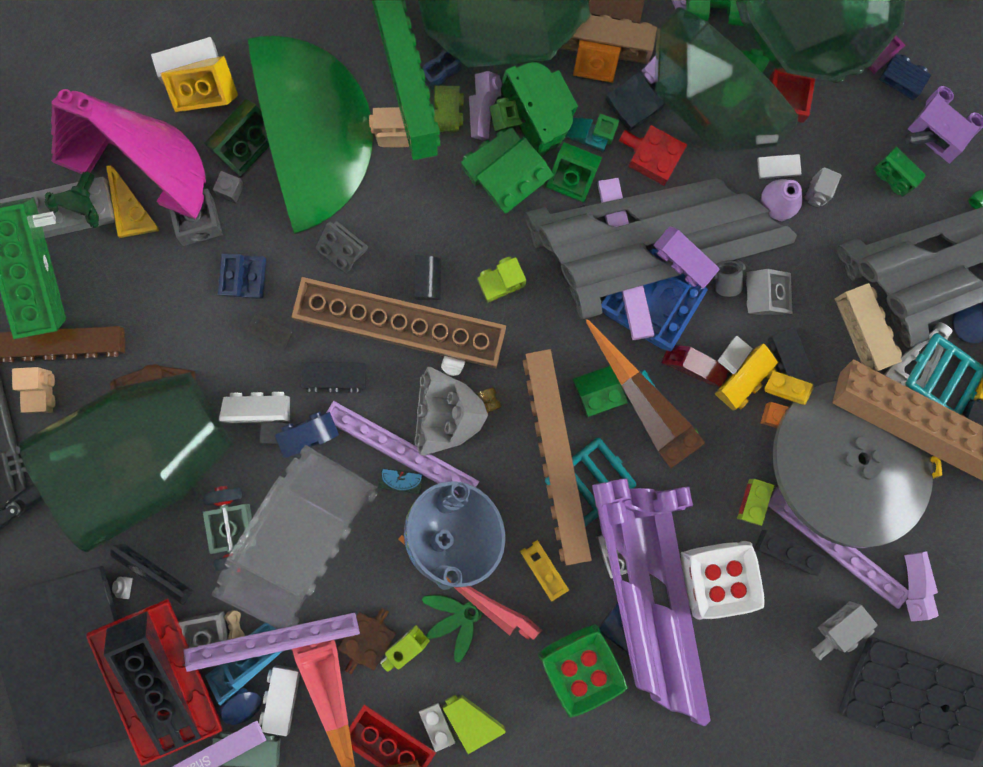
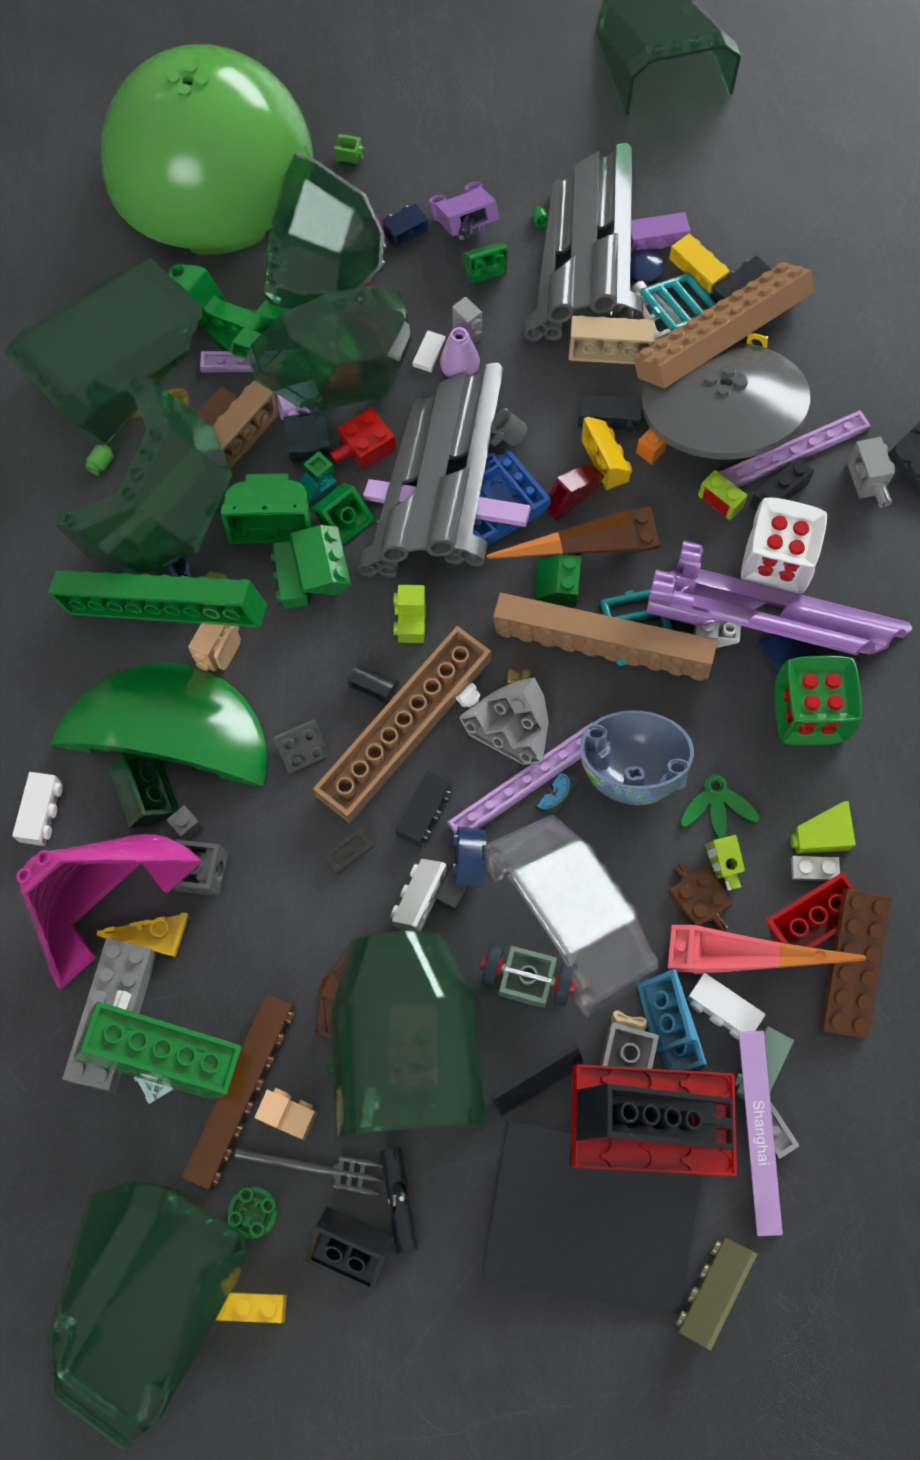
camera: 60 degrees left, 15 degrees down
(76, 200) = (117, 969): dark green axle -> none
(122, 587) = (536, 1118): white plate -> none
(200, 84) = (69, 804): yellow slope -> none
(240, 707) = (716, 1049): dark blue dish -> none
(242, 276) = (279, 854): dark blue slope -> none
(270, 642) = (663, 982): lavender tile -> none
(487, 90) = (235, 560): lavender slope -> none
(501, 615) = (732, 754): coral plate -> none
(505, 114) = (257, 545): bright green window -> none
(545, 571) = (705, 701): yellow plate -> none
(596, 61) = (253, 447): orange tile -> none
(686, 257) = (474, 445): medium lavender brick -> none
(735, 355) = (580, 453): white tile -> none
(769, 292) = (537, 405): light grey slope -> none
(789, 387) = (633, 419): yellow plate -> none
(921, 587) = (858, 398): lavender slope -> none

